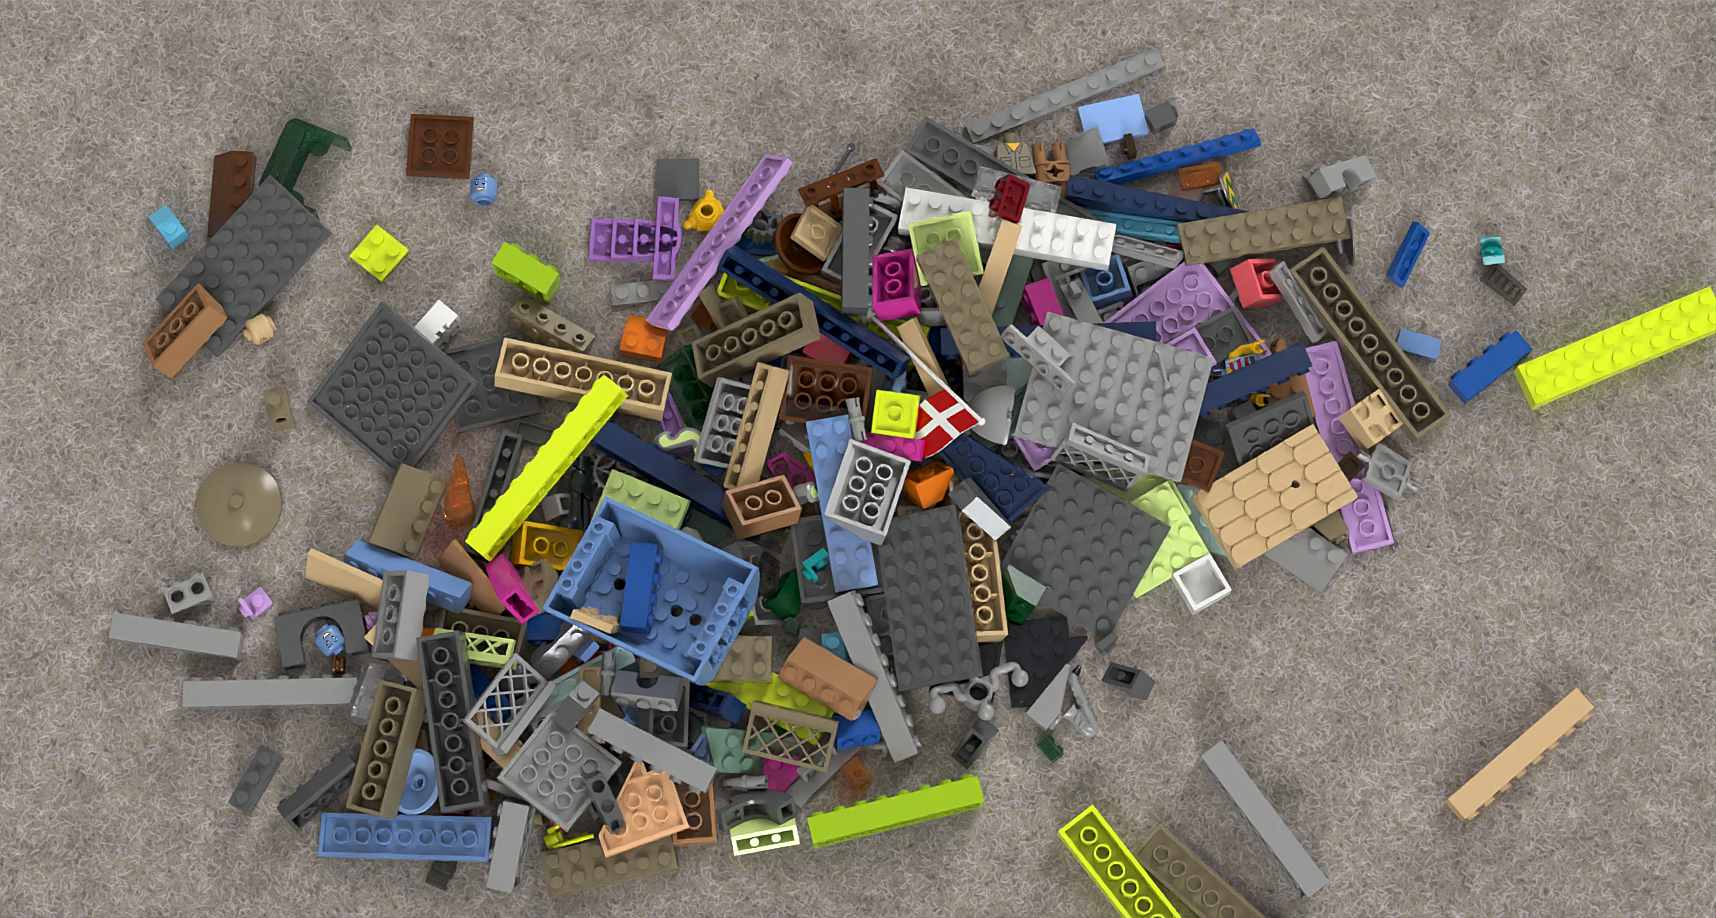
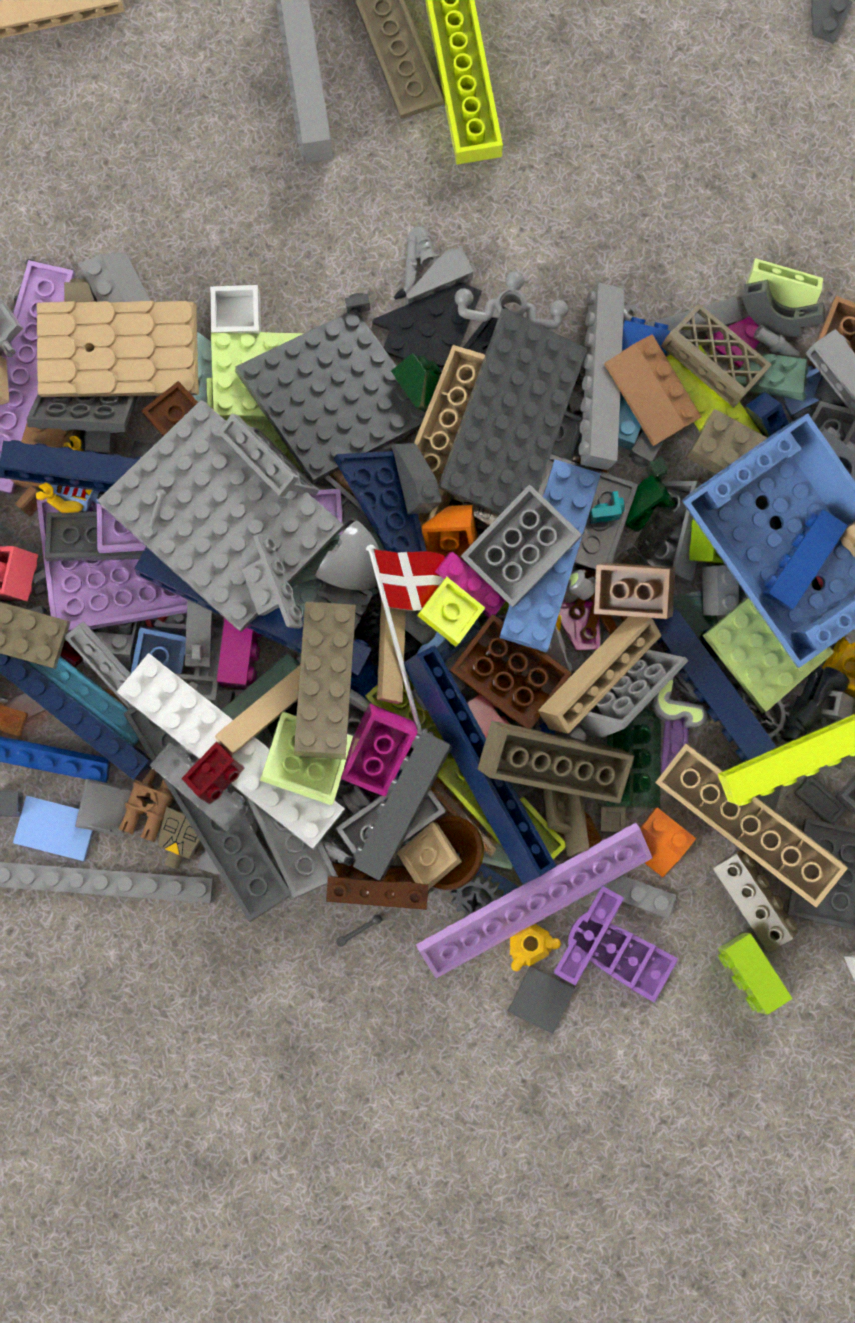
camera: 150 degrees left, 5 degrees up
(440, 146) = (778, 1170): reddish brown plate -> none
(483, 190) = (754, 1094): medium blue head -> none
(856, 419) = (494, 625): light grey pin -> none
(857, 774) = (664, 299): clear orange brick -> none
(896, 811) = (648, 242): lime brick -> none
(974, 742) = (537, 272): dark grey slope -> none
(1049, 748) = (466, 235): clear green piece -> none
(1128, 146) = (56, 790): dark brown plate -> none
(1129, 680) = (356, 258): dark grey slope -> none
(1351, 466) = (25, 348): dark brown plate -> none

